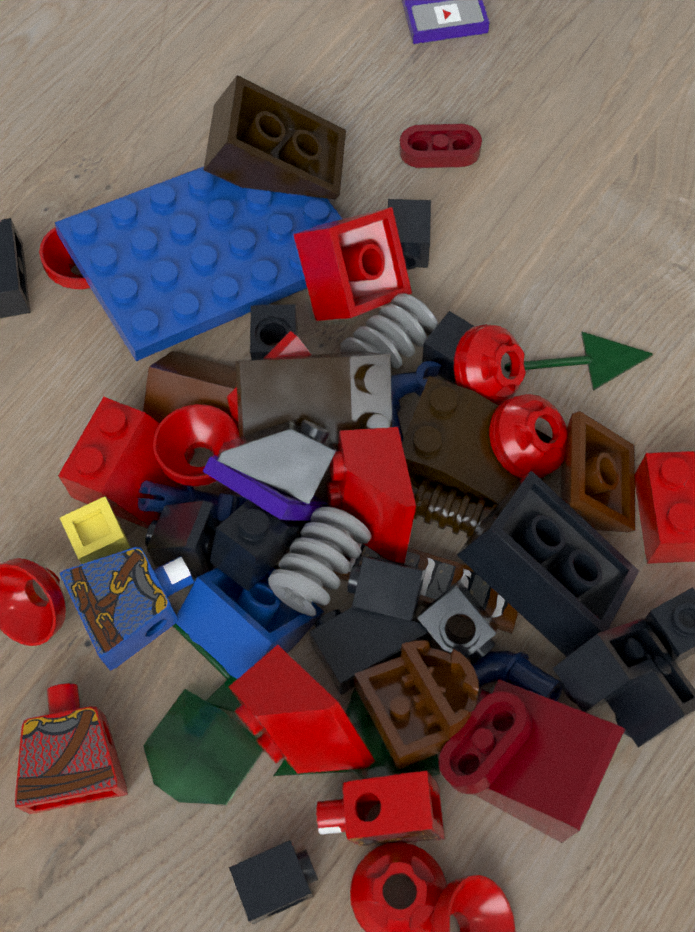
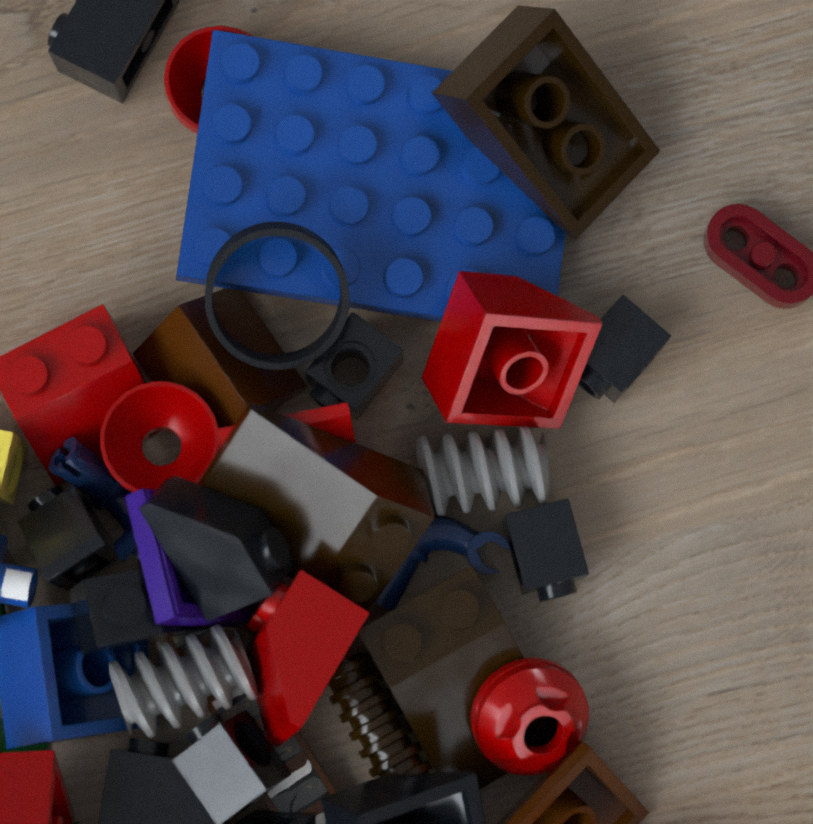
camera: 35 degrees right, 15 degrees up
(227, 282) = (291, 359): none -> black tyre
(479, 362) = (552, 585): red piece -> none
(604, 359) = (713, 682): dark green piece -> none

